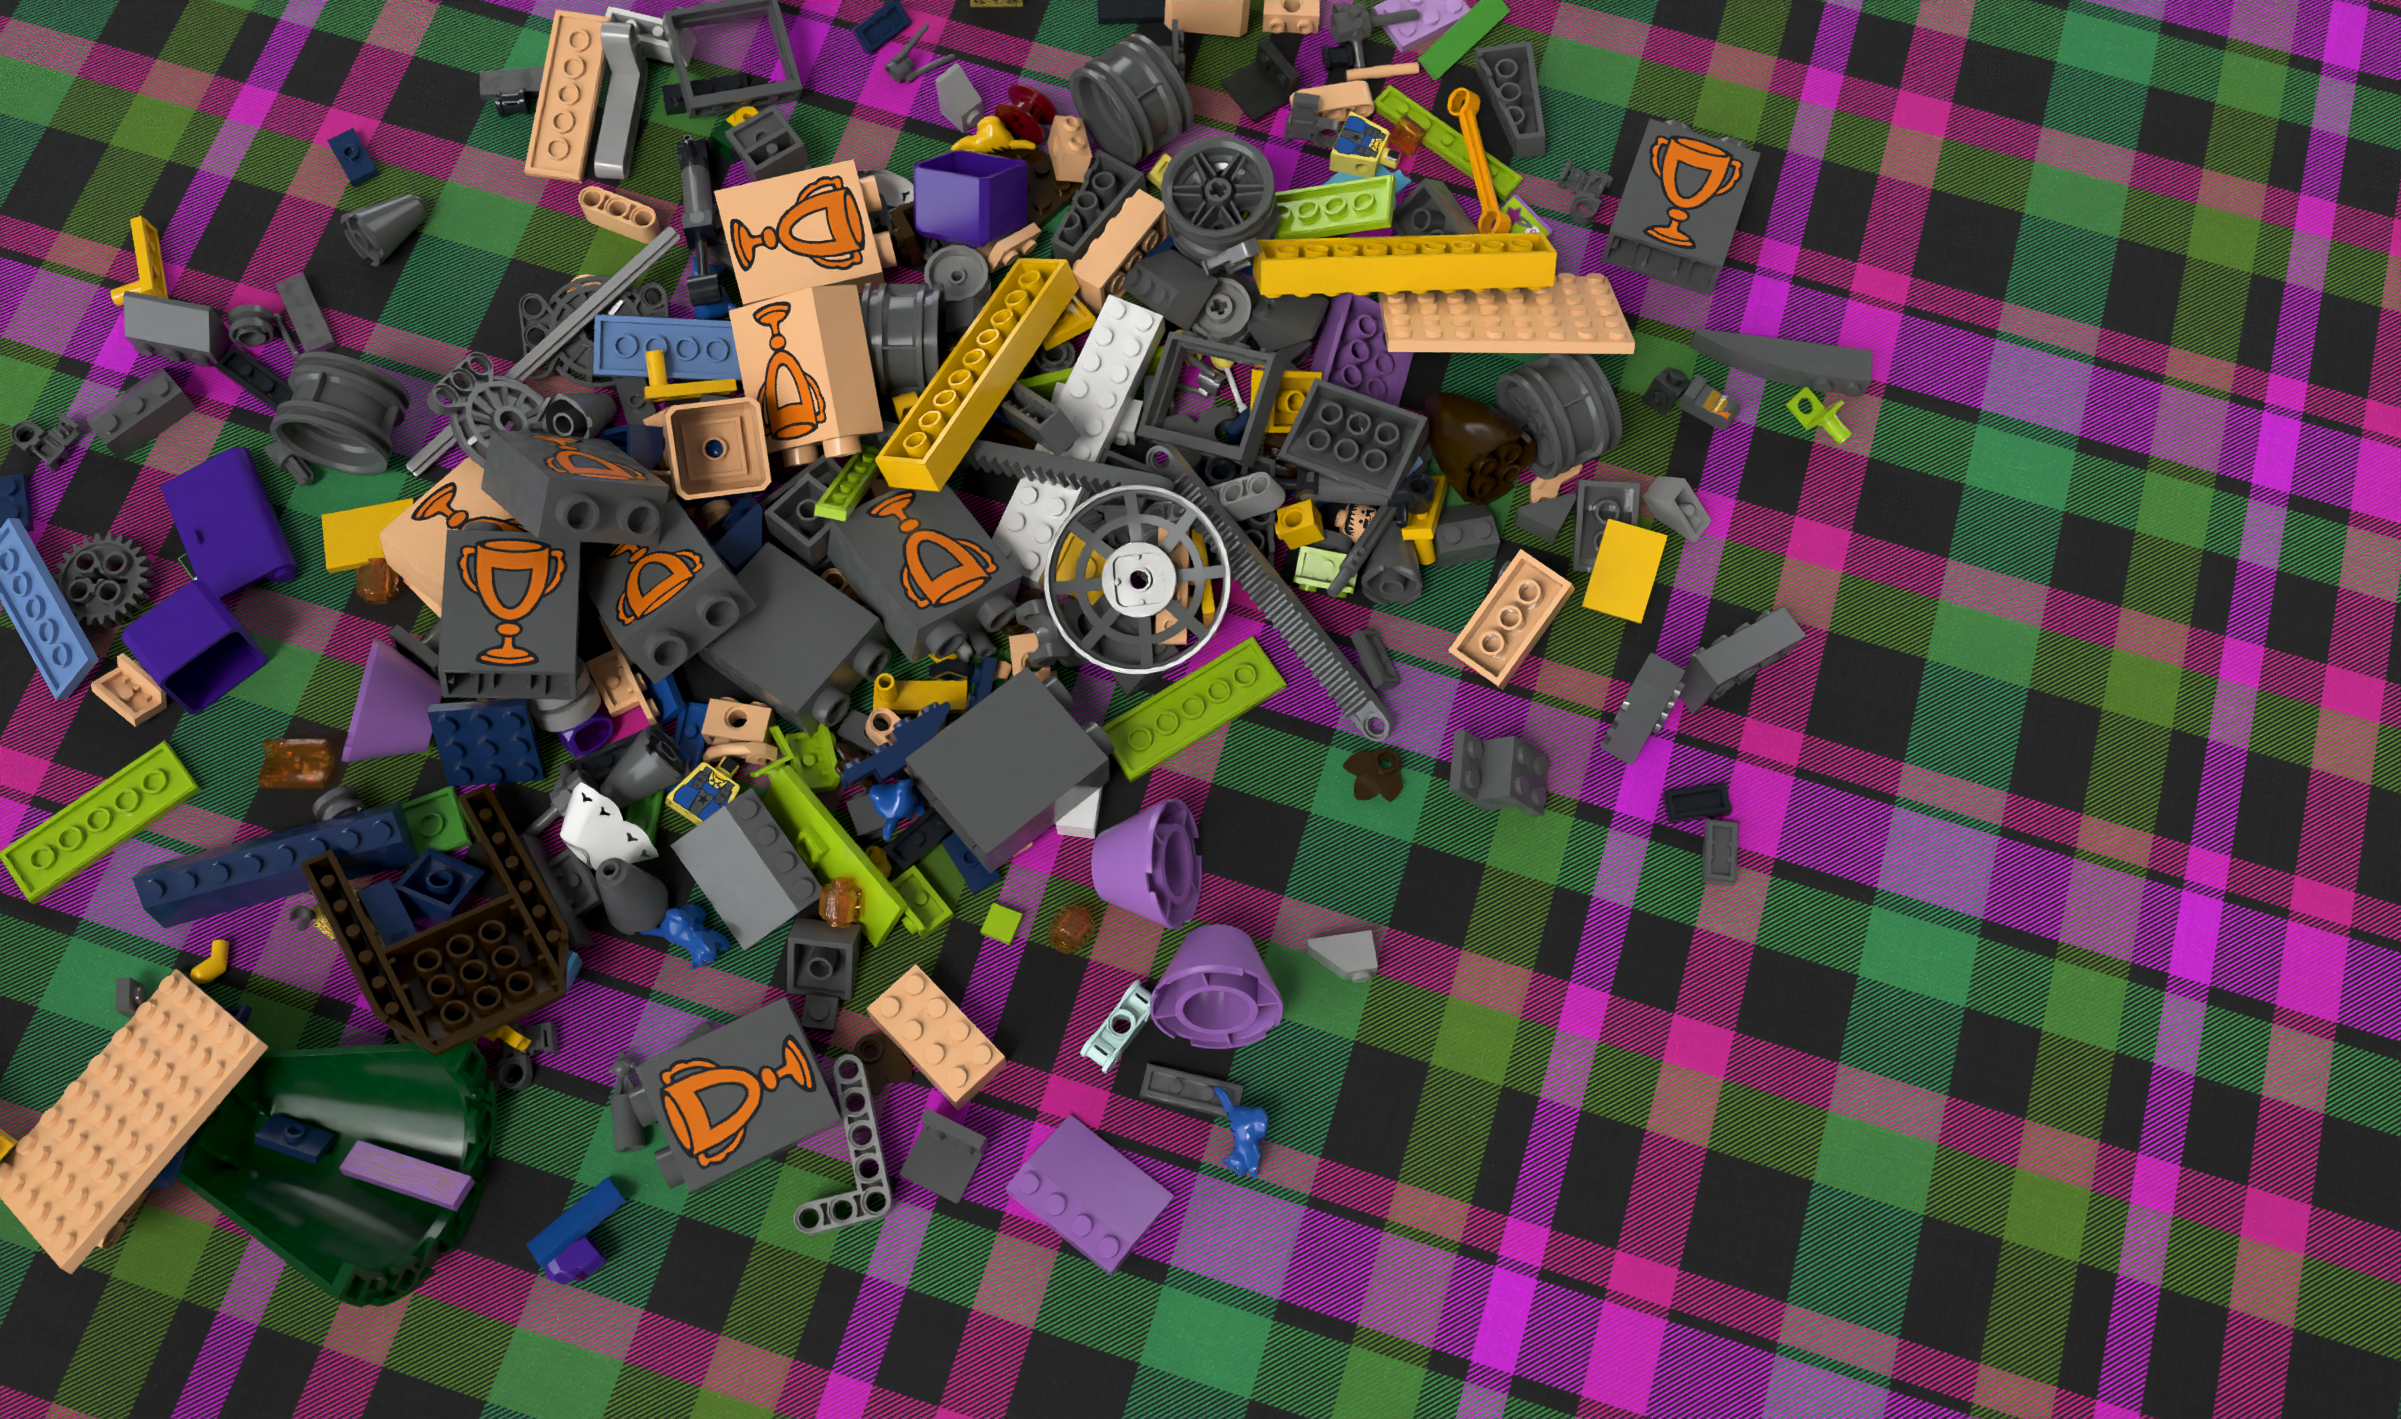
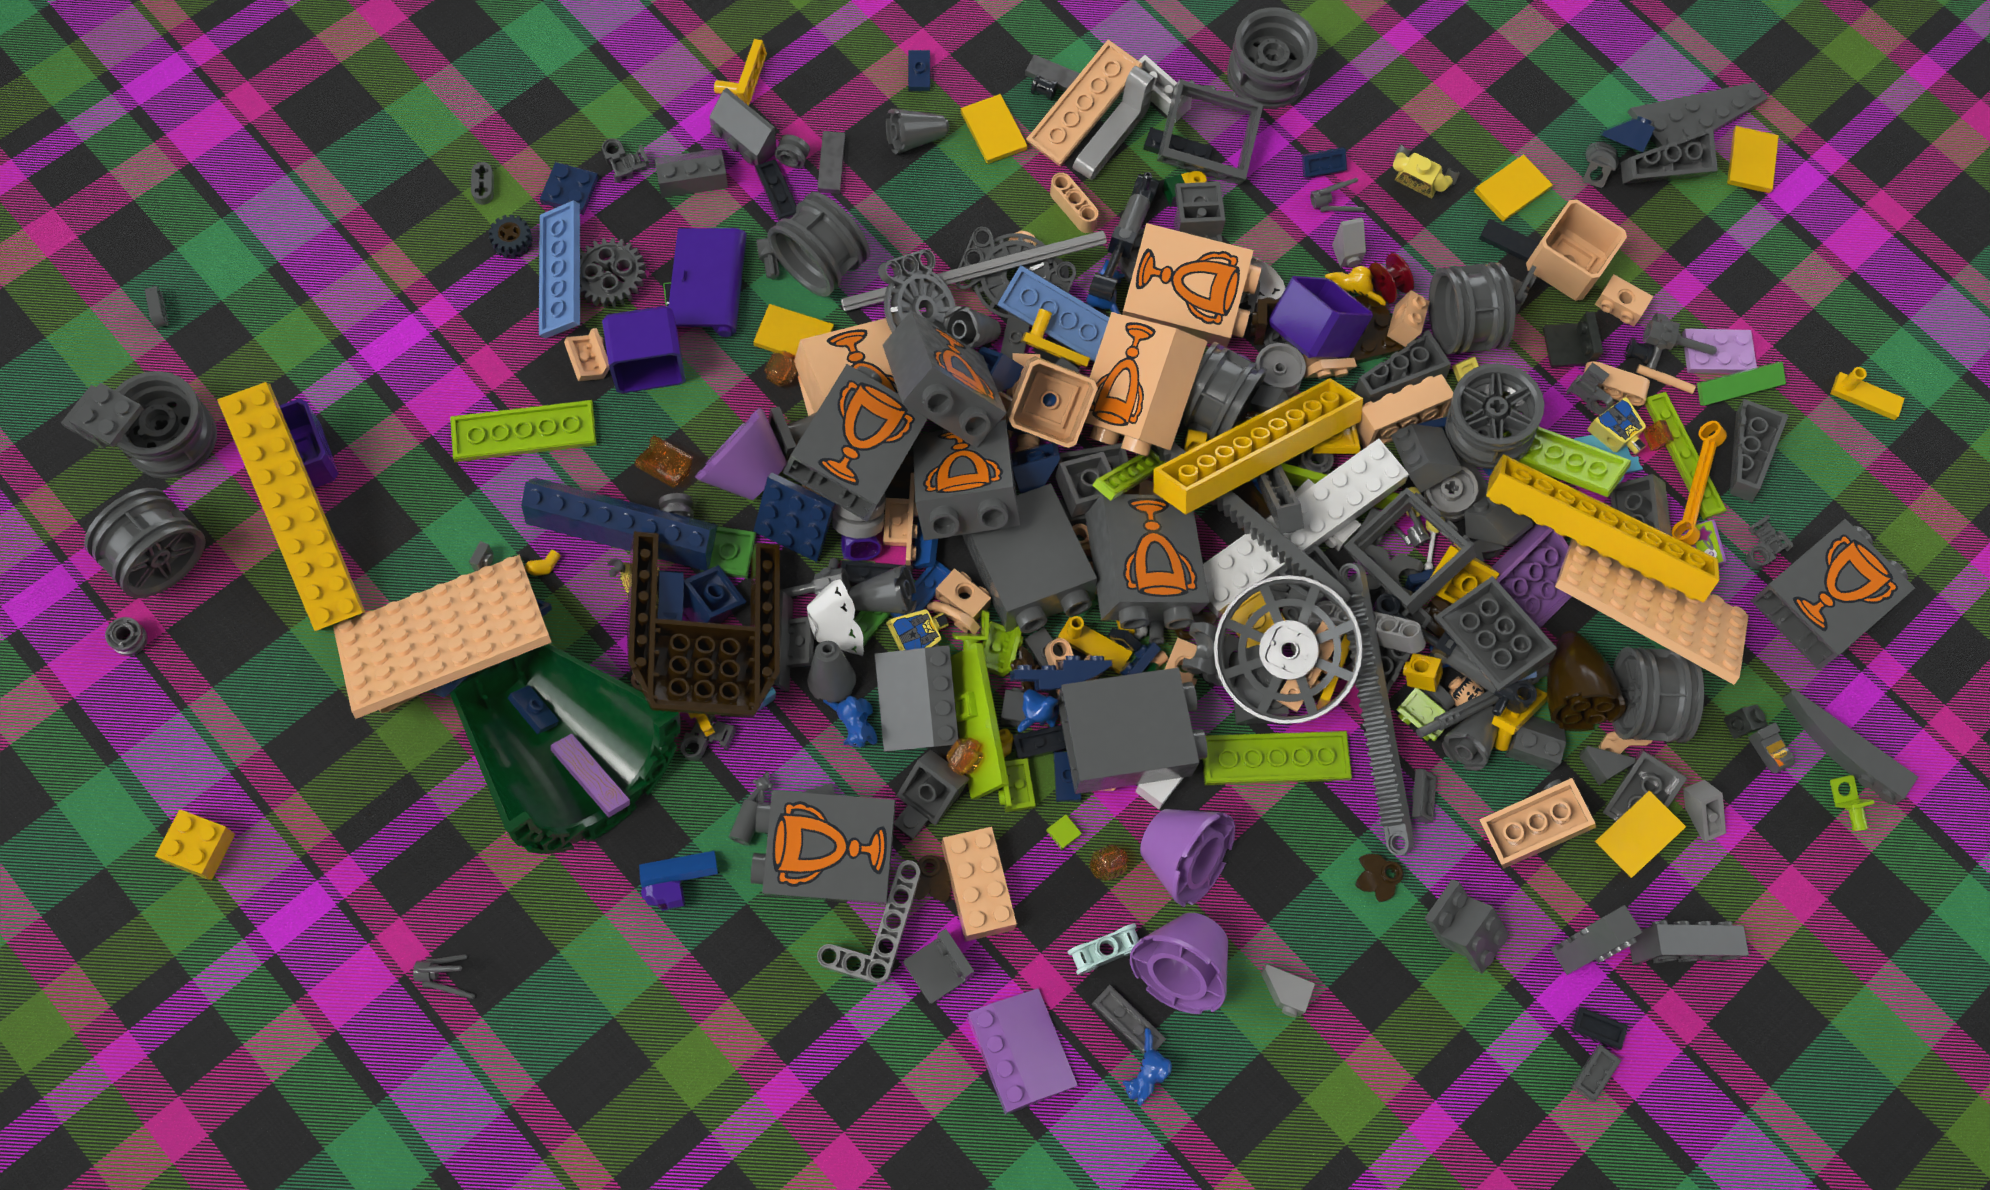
camera: 25 degrees right, 0 degrees up
(278, 320) = (811, 156): dark grey hinge -> none
(479, 179) = (993, 129): none -> yellow tile
(1233, 258) = (1480, 460): dark grey piece -> none

